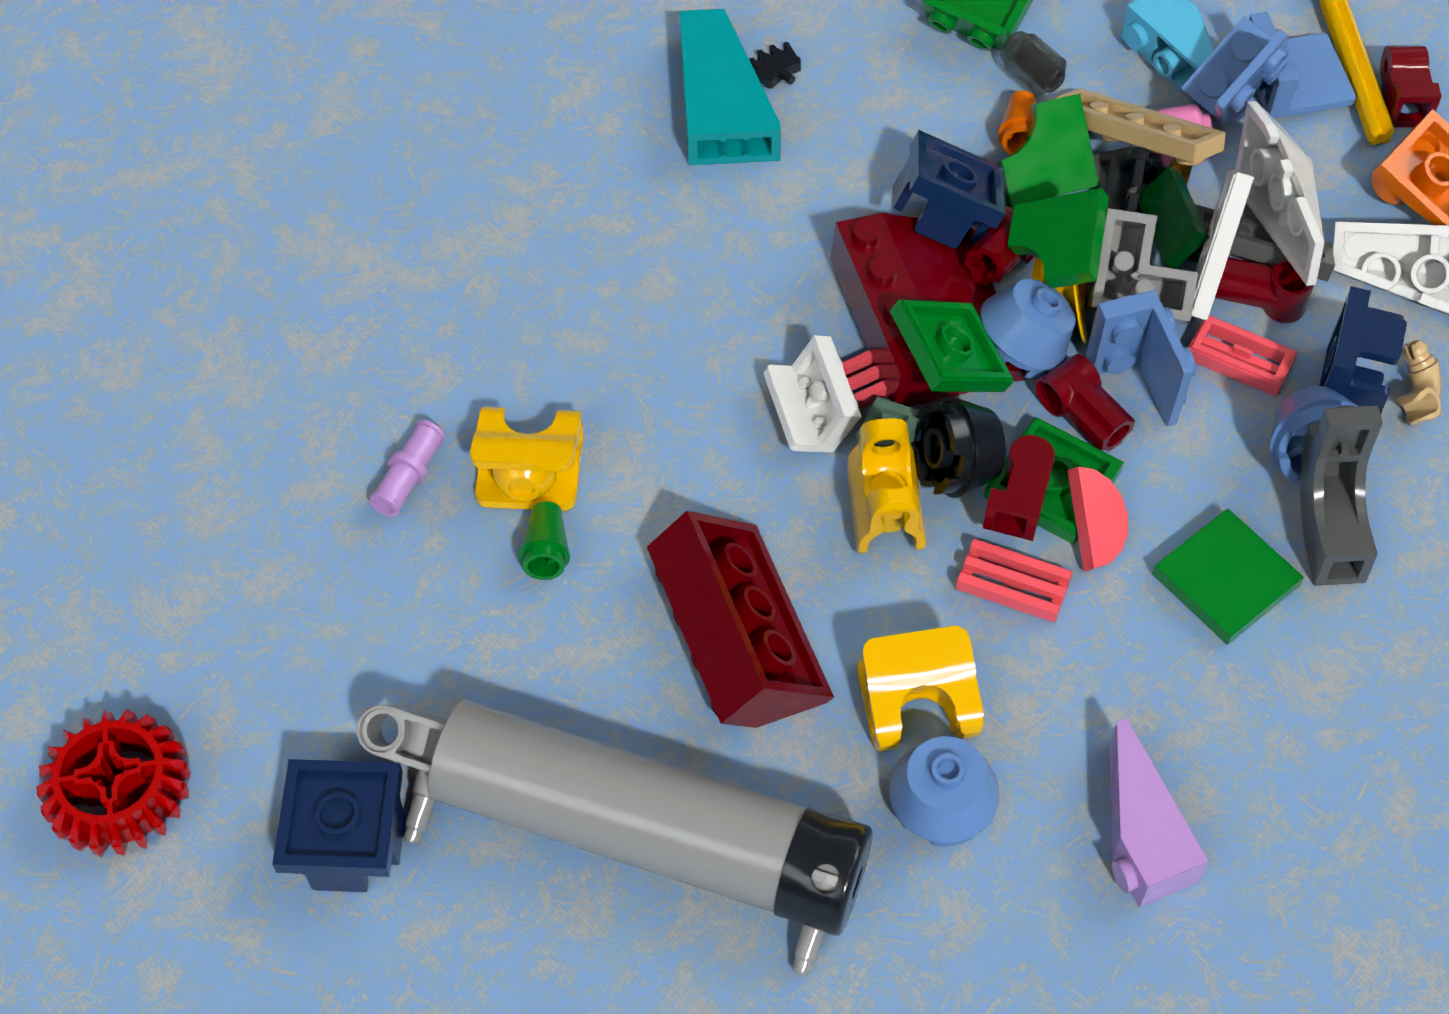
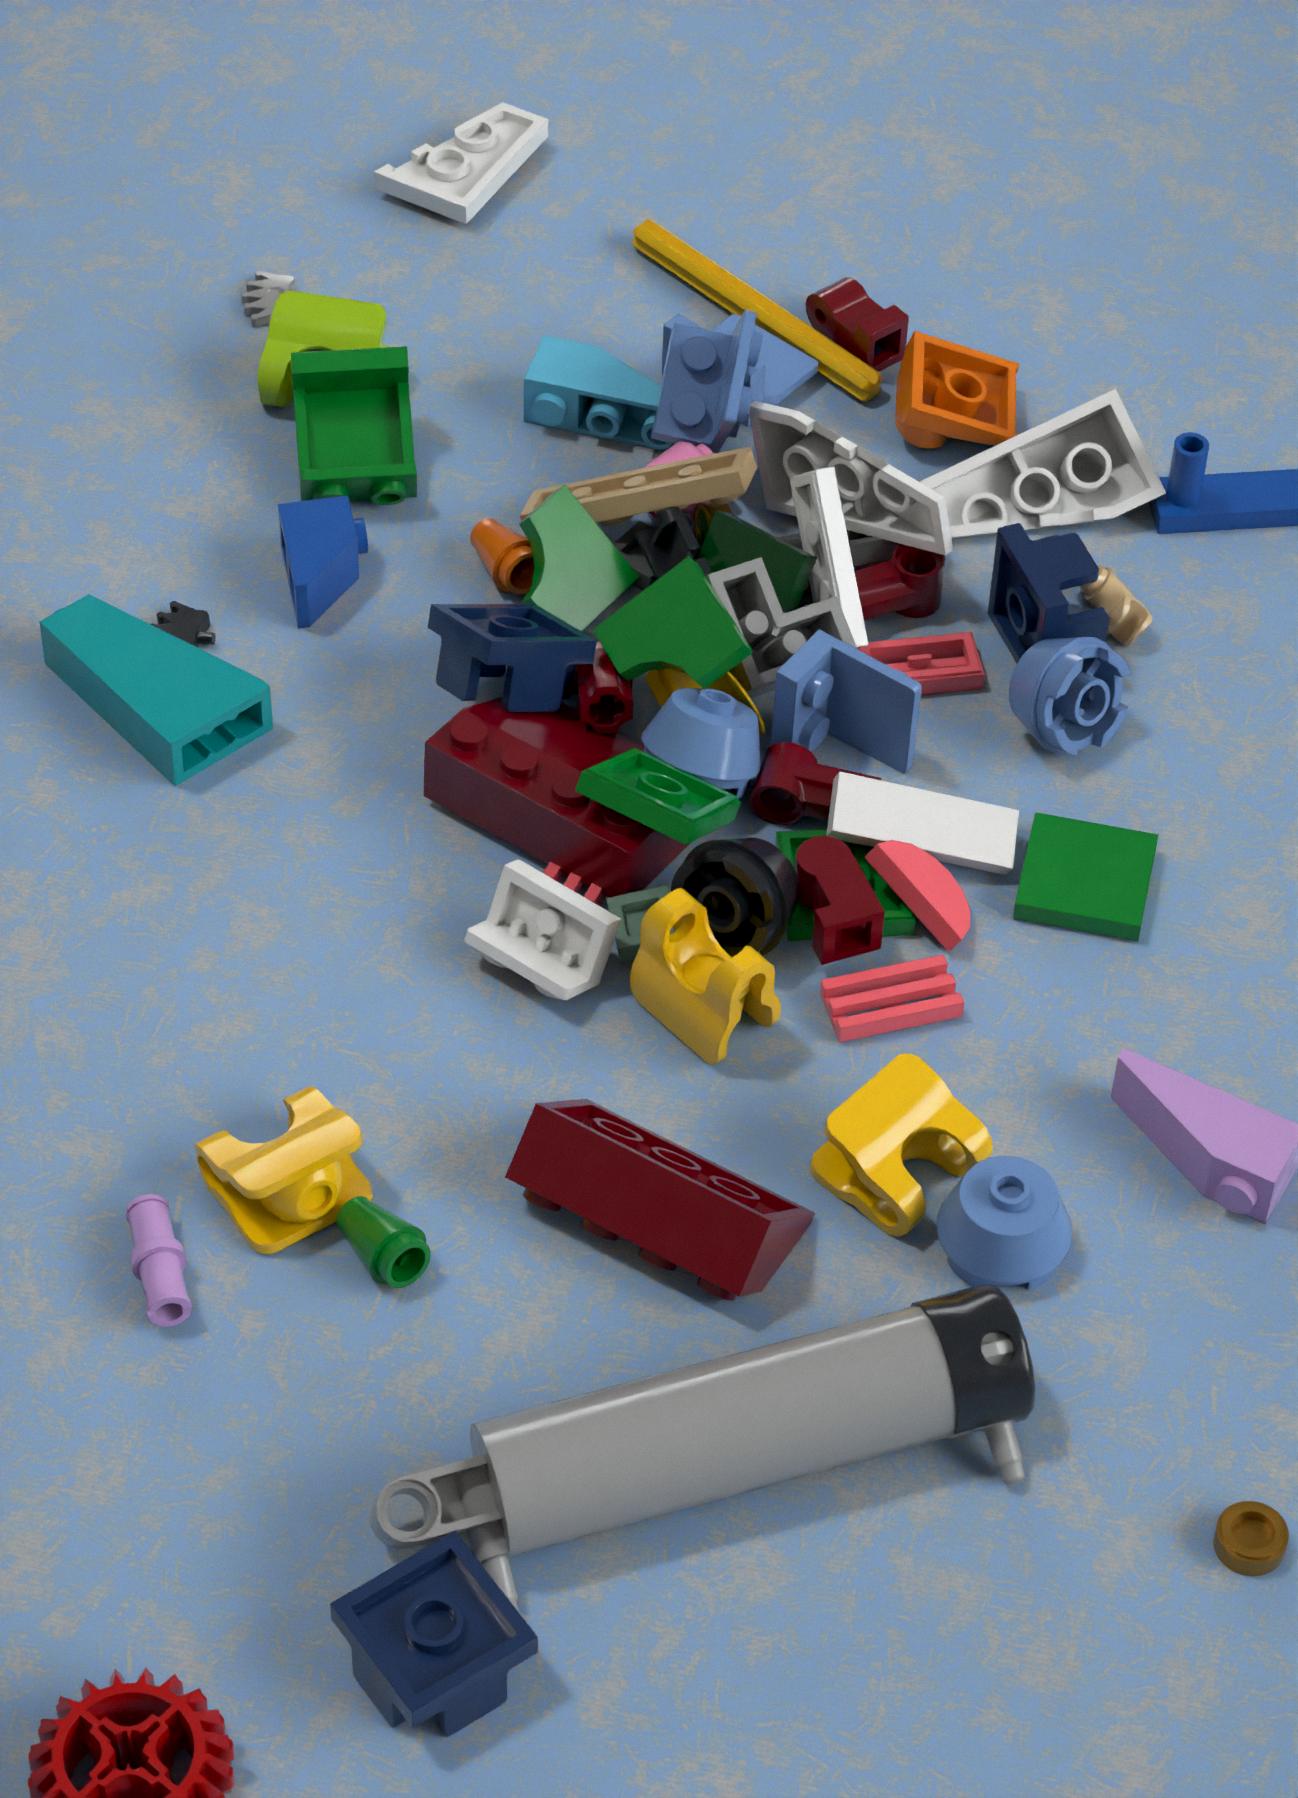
camera: 40 degrees left, 10 degrees down
(898, 59) = (320, 553): none -> blue slope
(1033, 63) = (466, 488): clear smoke brick -> none
(1134, 470) = (938, 823): none -> white tile
(1334, 494) = (1127, 739): dark grey arch -> none

